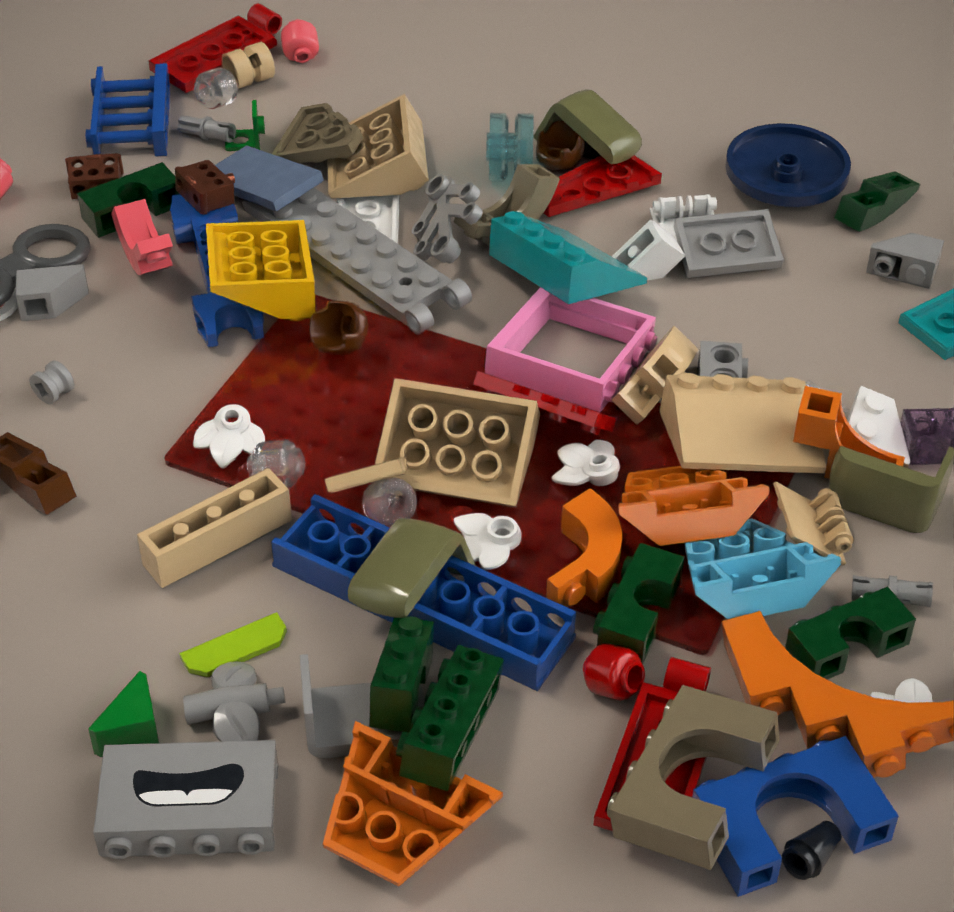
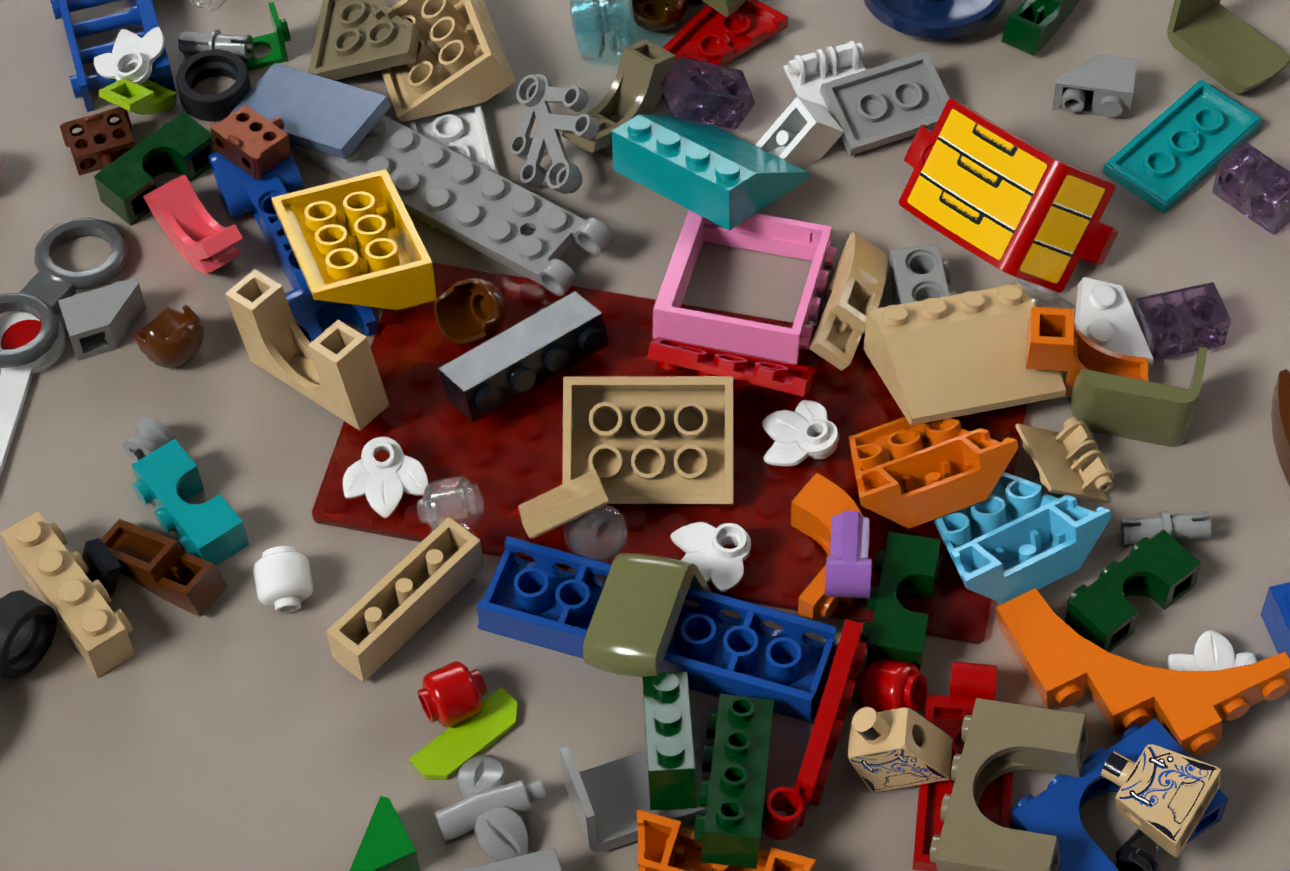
camera: 10 degrees left, 10 degrees up
(63, 430) = (204, 529): none -> teal arch
(97, 314) = (171, 337): none -> reddish brown hair
(121, 496) = (283, 579): none -> white head
(132, 149) = (140, 99): none -> lime slope
(136, 123) = (131, 56): none -> white plate
(193, 140) = (211, 64): none -> black tyre
(201, 341) = (331, 370): none -> tan arch
(230, 606) = (452, 694): none -> red head
(371, 367) = (524, 356): none -> black brick
(495, 747) = (821, 742): none -> red hinge
(580, 212) = (707, 93): none -> clear purple brick
(596, 558) = (848, 565): none -> medium lavender piece
(601, 715) = (897, 749): none -> tan torso
(812, 318) = (1006, 198): none -> panel
(837, 796) = (1163, 793): none -> tan torso

